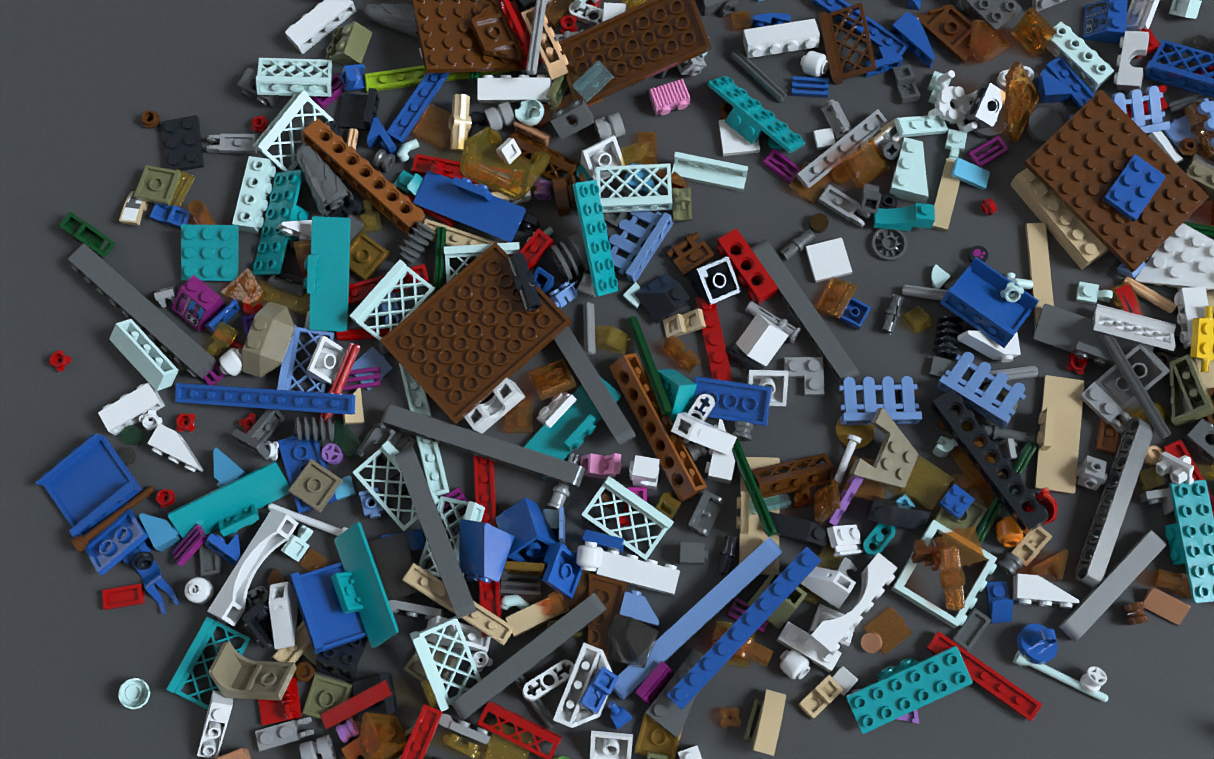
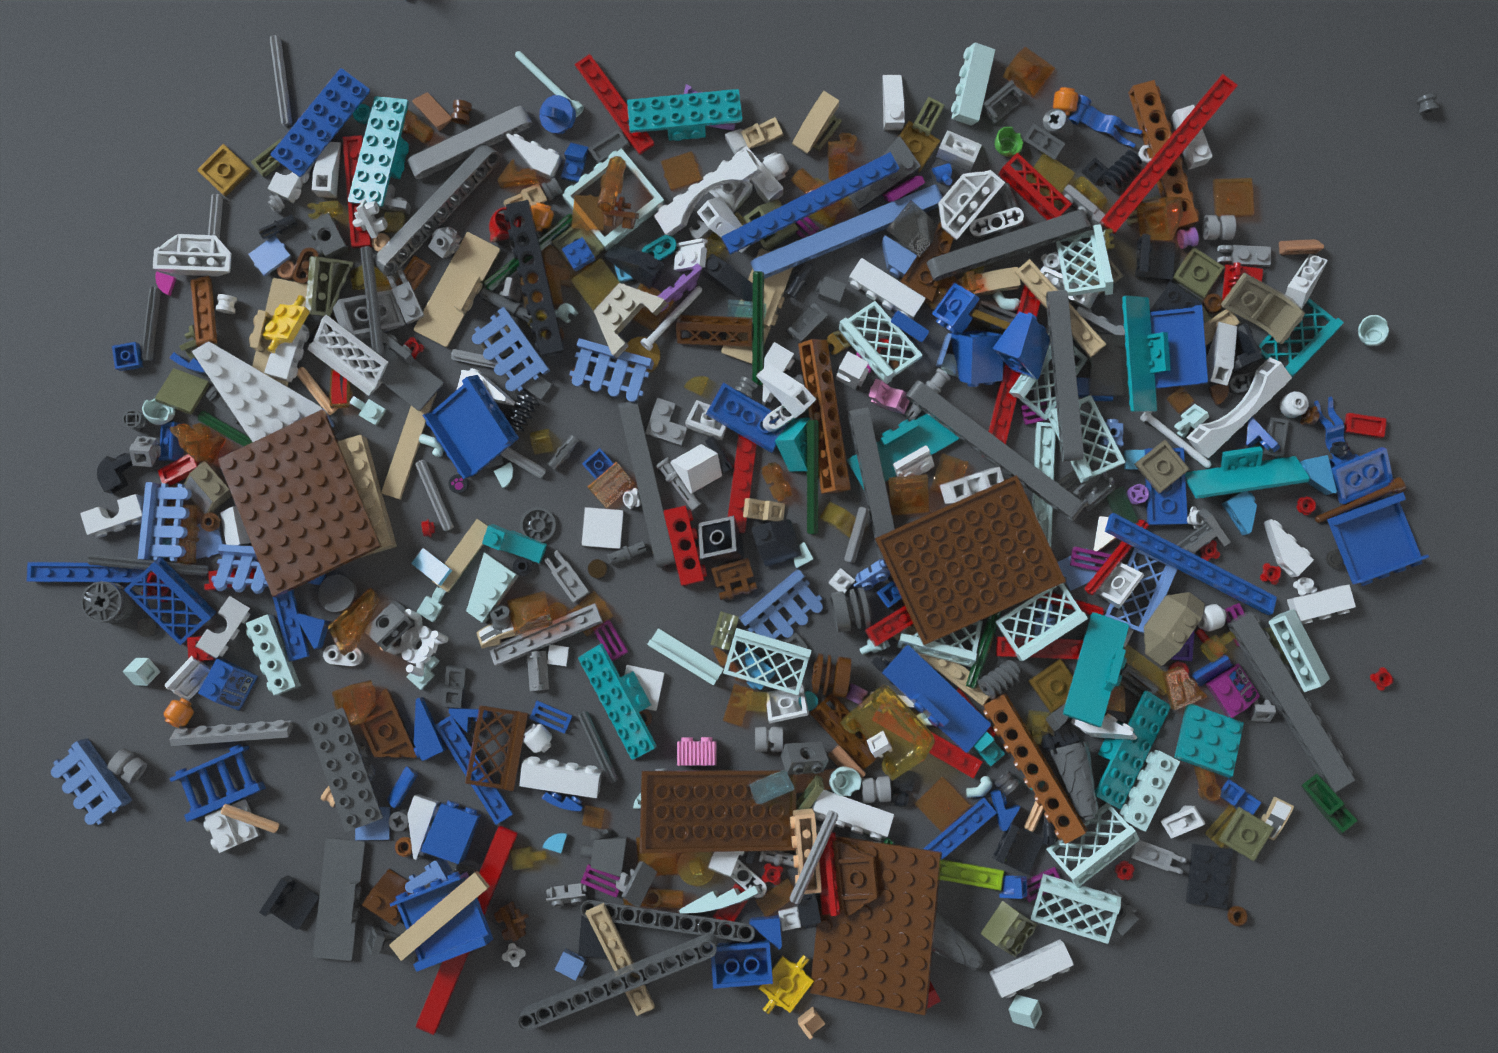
camera: 170 degrees left, 10 degrees up
(131, 435) = (1325, 578): clear green tile -> none
(178, 585) = (1310, 416): none -> reddish brown plate
(189, 545) = (1293, 453): magenta tile -> none
(217, 176) = (1182, 821): none -> white slope
(314, 429) = (1150, 518): dark grey piece -> none
(356, 704) = (1175, 254): red sticker -> none
(437, 166) = (956, 752): red plate -> none
(459, 121) = (919, 796): tan piece -> none
(524, 282) = (908, 589): black piece -> none
(589, 556) = (928, 312): white head -> none
(595, 237) = (824, 616): teal bracket -> none
(598, 689) = (958, 193): blue slope -> none
(732, 691) = (837, 159): none -> clear orange slope
(790, 420) = (697, 384): none -> clear yellow tile
(801, 497) = (714, 309): reddish brown tile -> none
(812, 293) = (632, 498): none -> white plate
(826, 501) = (694, 292): clear orange plate -> none
(870, 196) = (538, 574): dark grey leg -> none
(871, 642) = (700, 163): nougat tile -> none
(920, 126) = (462, 632): light aqua tile -> none
(975, 160) = (420, 582): magenta tile -> none
(996, 238) = (434, 495): none -> light grey axle
(1012, 297) = (444, 430): light aqua plate -> none
(1034, 32) = (305, 692): clear orange plate -> none
(1093, 679) = (518, 72): white wheel -> none
(1134, 187) = (287, 485): blue plate -> none

